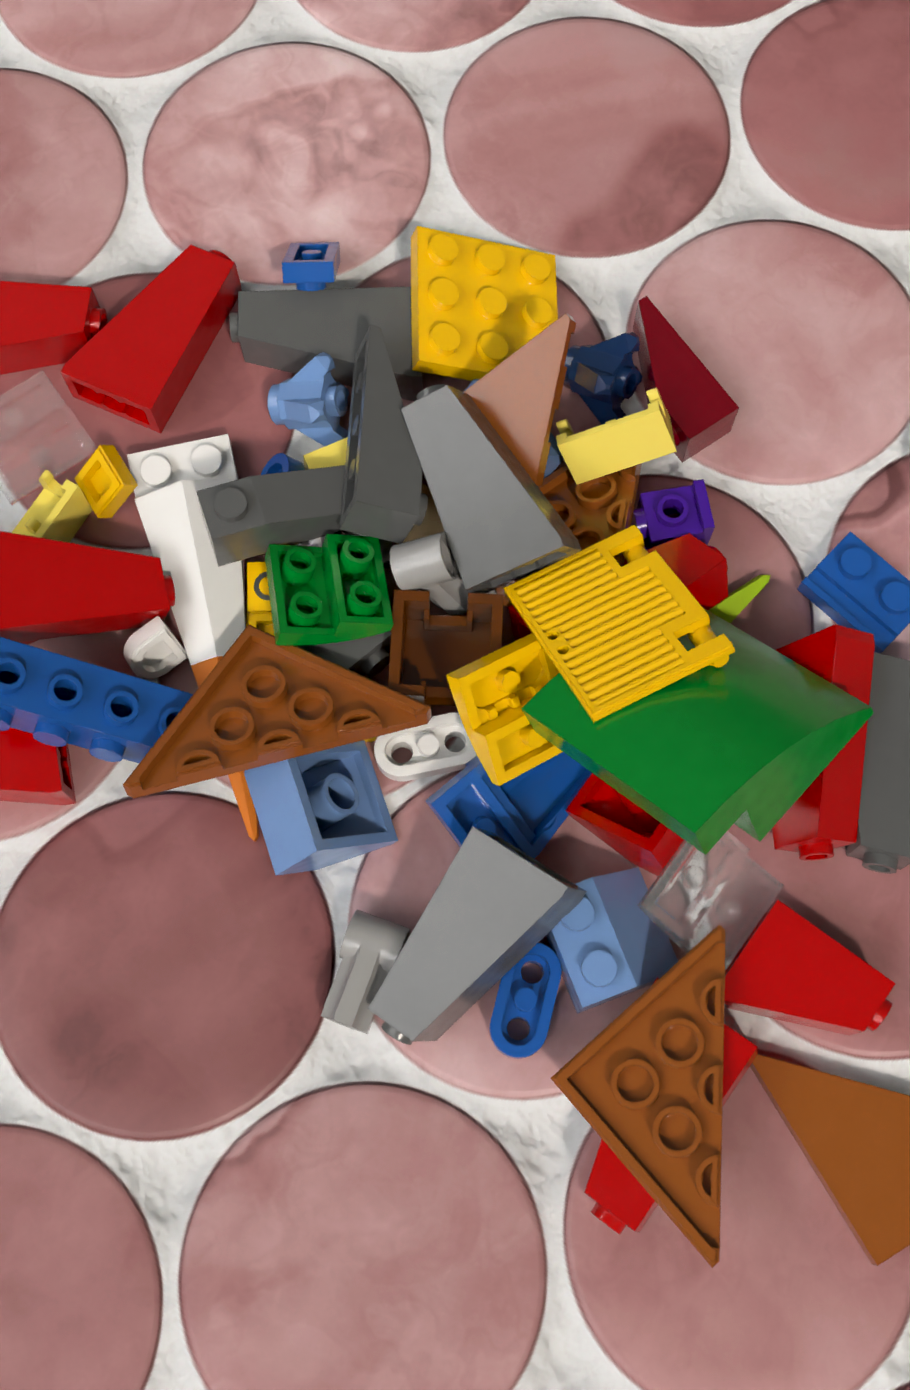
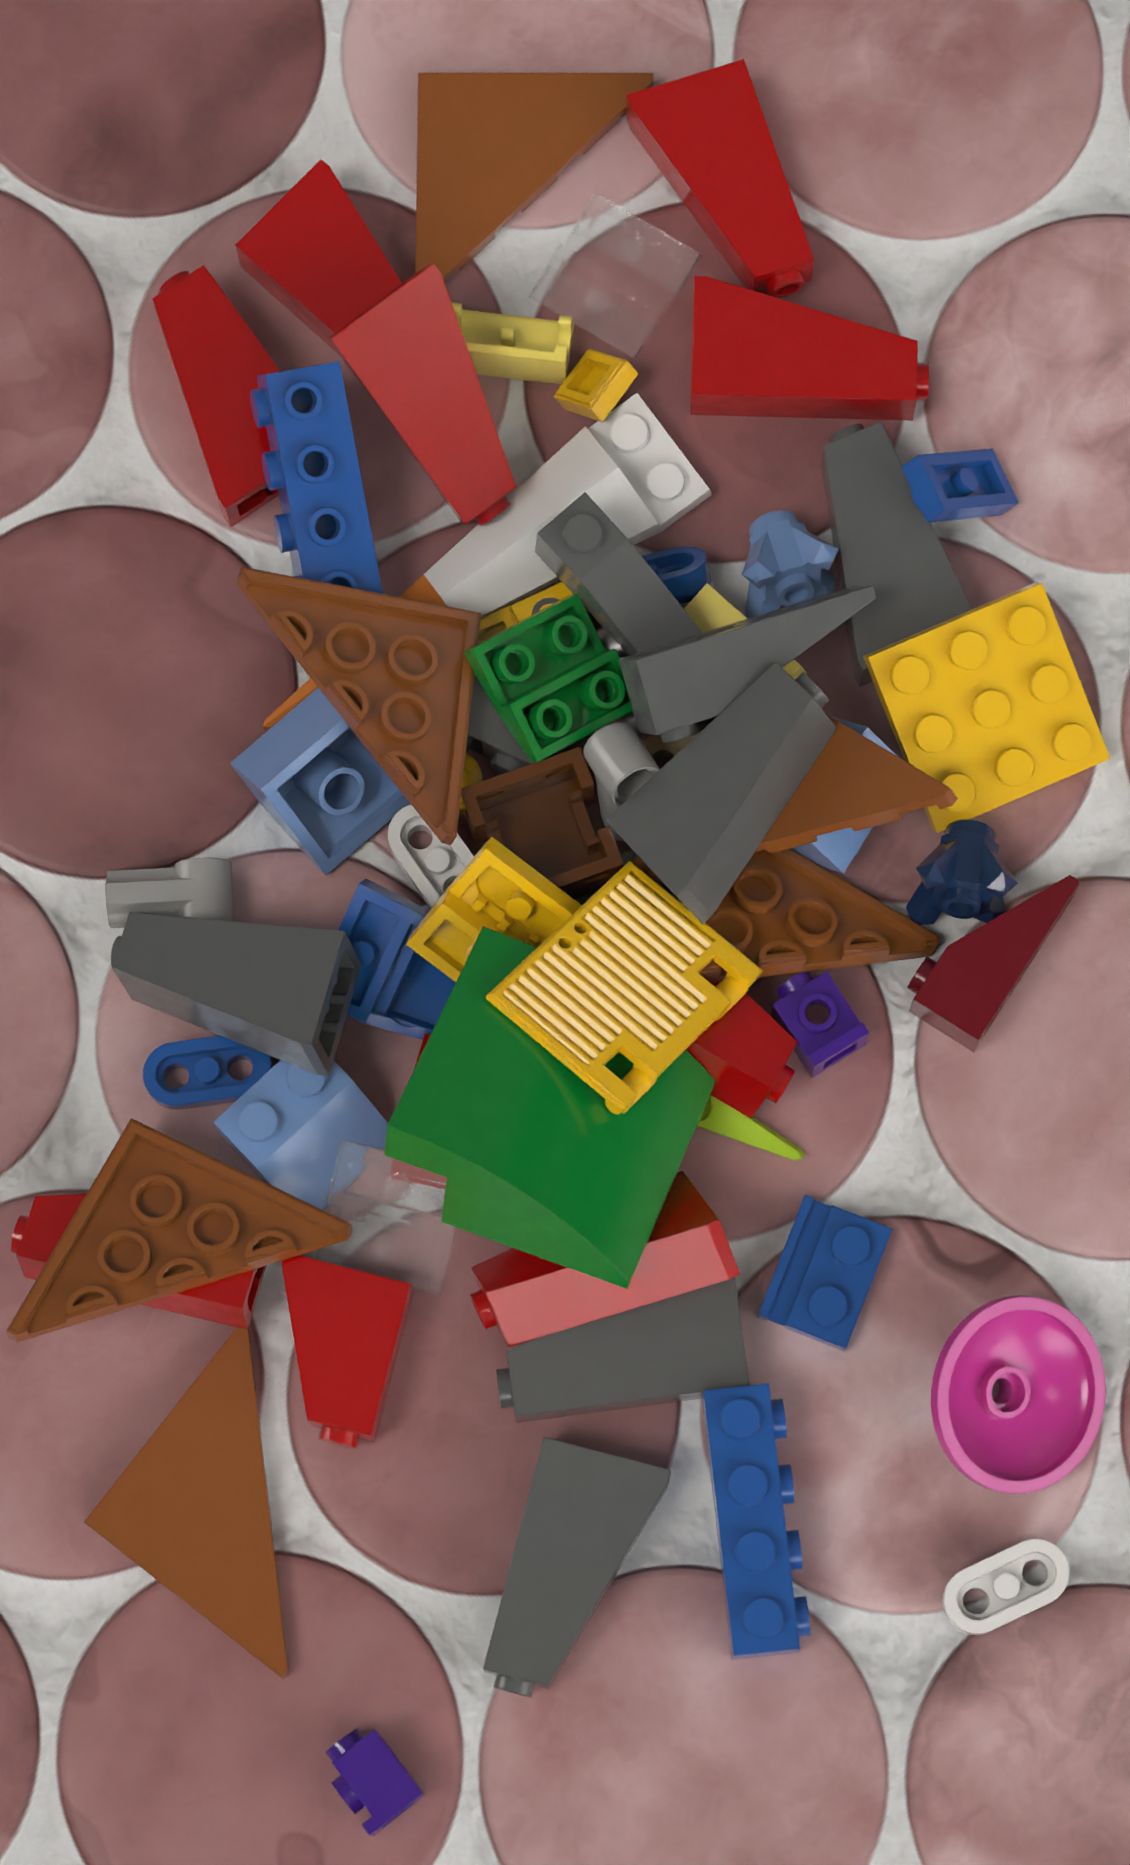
camera: 70 degrees right, 5 degrees up
(153, 650) = (423, 528): white tile -> none
(617, 442) = (869, 918): light yellow hinge -> none

